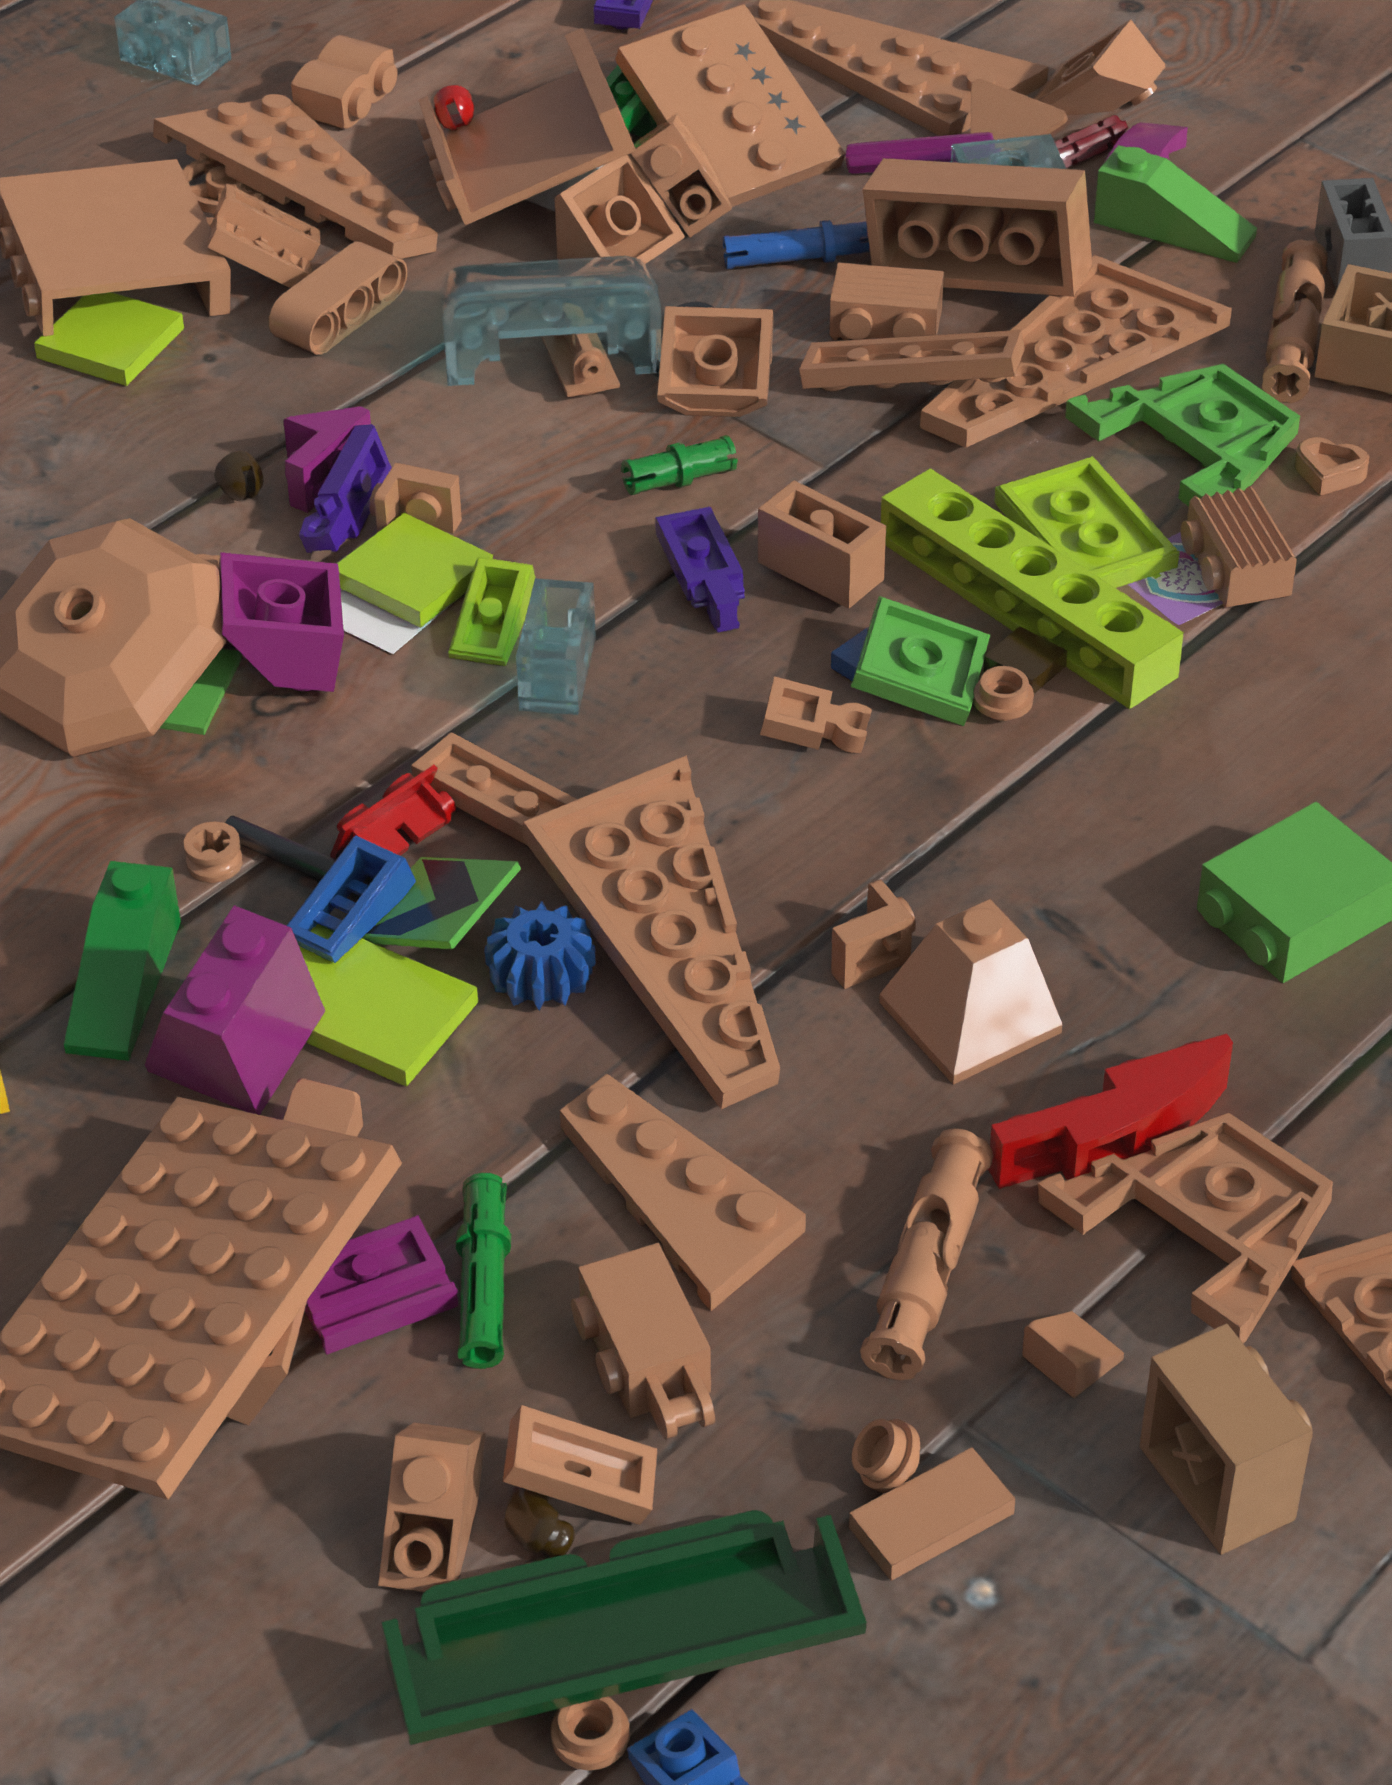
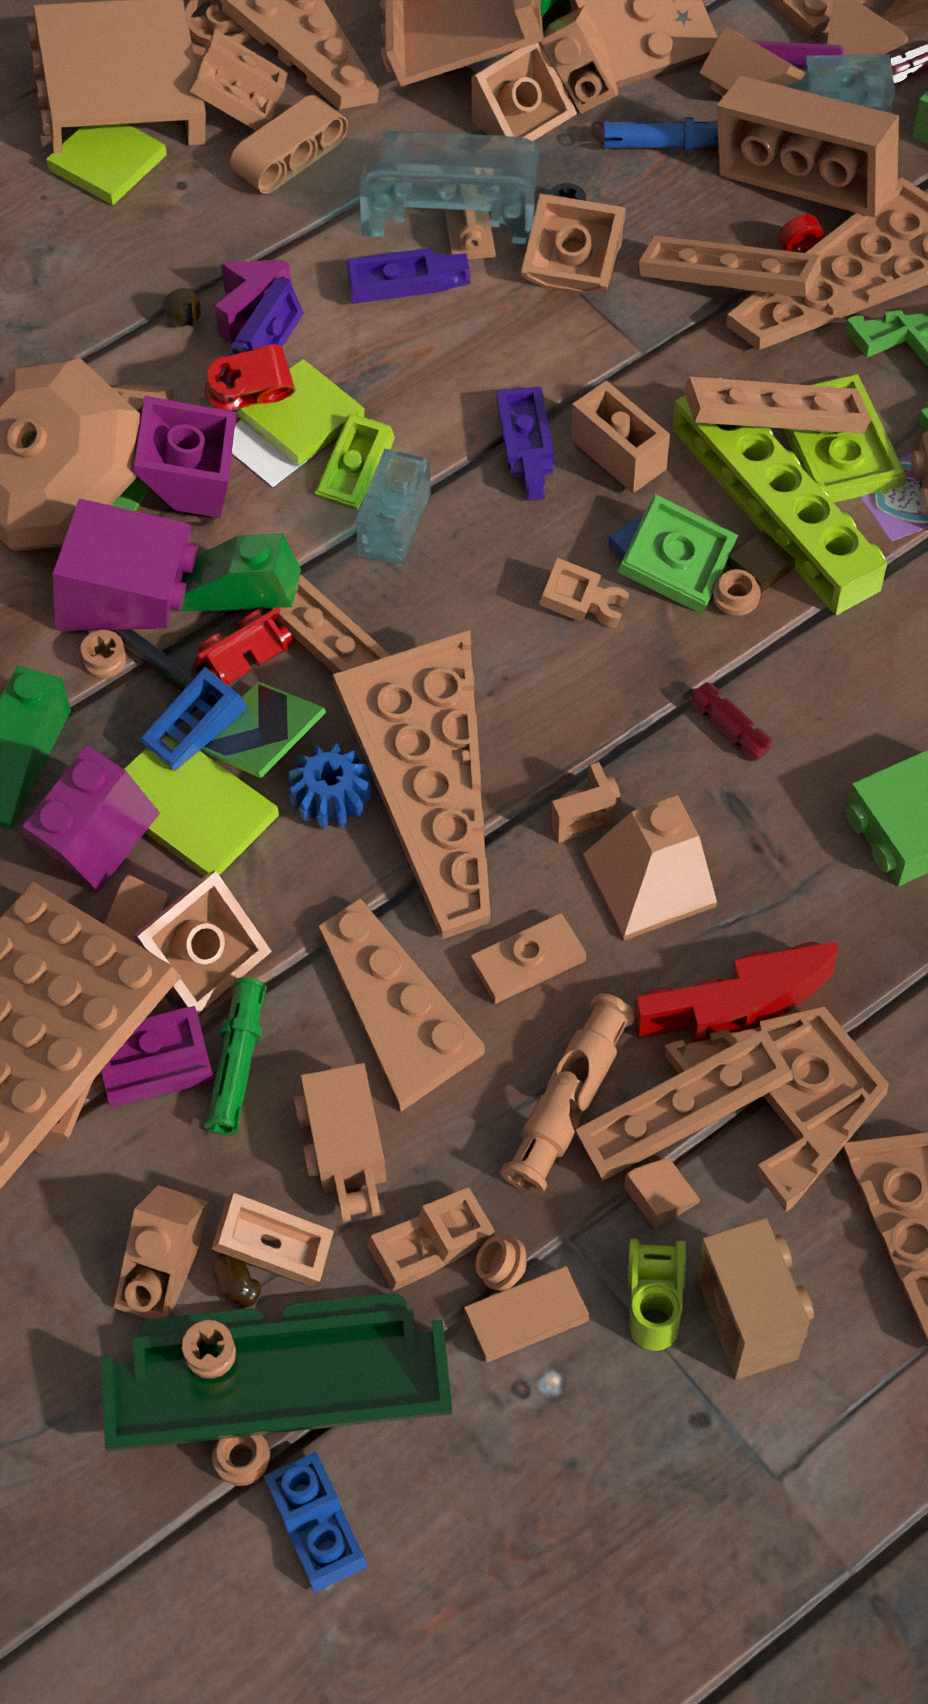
camera: 10 degrees right, 15 degrees up
(224, 746) = (120, 569): none -> magenta slope
(349, 526) = (257, 378): none -> red piece
(370, 738) = (243, 574): none -> green slope
(419, 493) = (318, 346): nougat bracket -> none
(431, 1134) = (205, 941): none -> nougat slope
(513, 414) = (405, 274): none -> dark purple hinge
(516, 1582) = (209, 1365): none -> nougat bush
(679, 465) = (526, 340): green pin -> none
(791, 1445) = (432, 1240): none -> nougat slope
(837, 1115) = (528, 958): none -> nougat plate
(863, 150) = (738, 56): none -> nougat slope
(884, 302) = (722, 205): nougat brick -> none
(988, 316) = (800, 234): none -> red tile
(1007, 485) = (776, 405): none -> nougat plate
(1031, 830) = (731, 721): none -> dark red axle
(1079, 1240) = (684, 1104): none -> nougat plate
(1095, 1462) = (658, 1284): none -> lime piece

